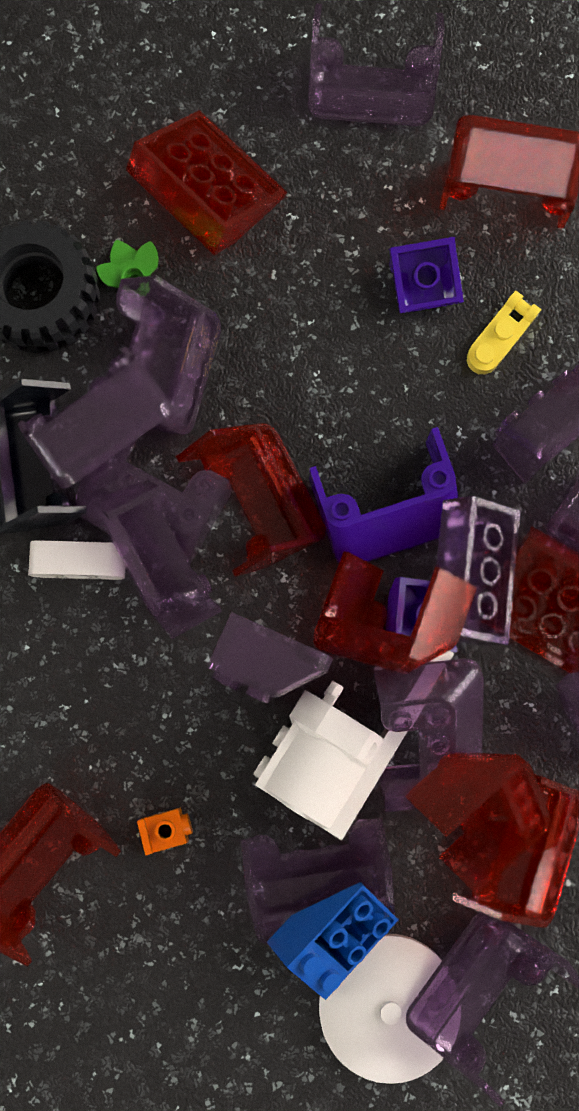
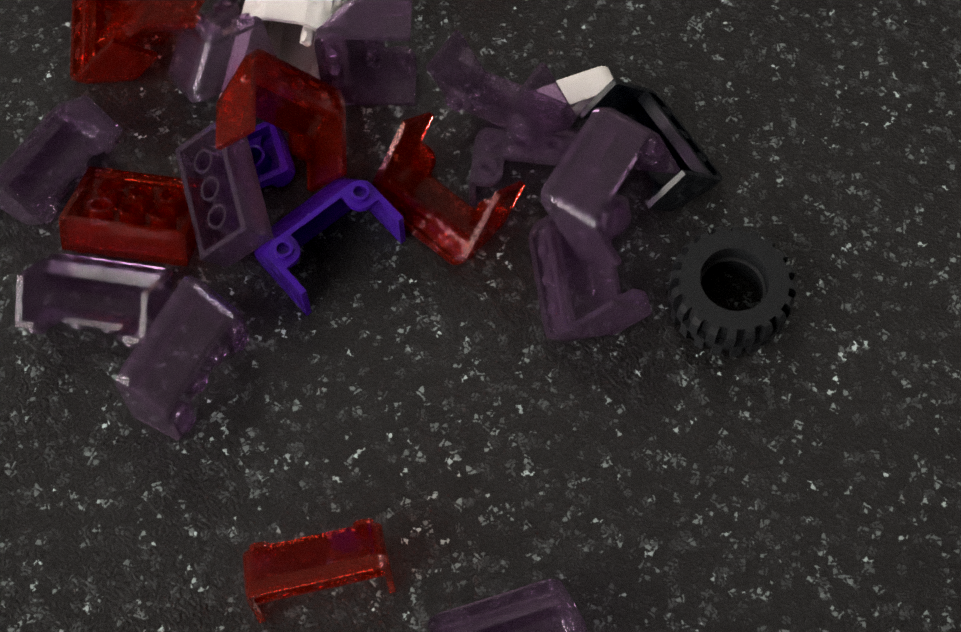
camera: 155 degrees right, 15 degrees down
(128, 263) = (662, 359): bright green plate -> none
(204, 180) = (625, 465): clear red slope -> none
(426, 275) = (370, 453): dark purple slope -> none
(501, 335) = (275, 432): light yellow plate -> none

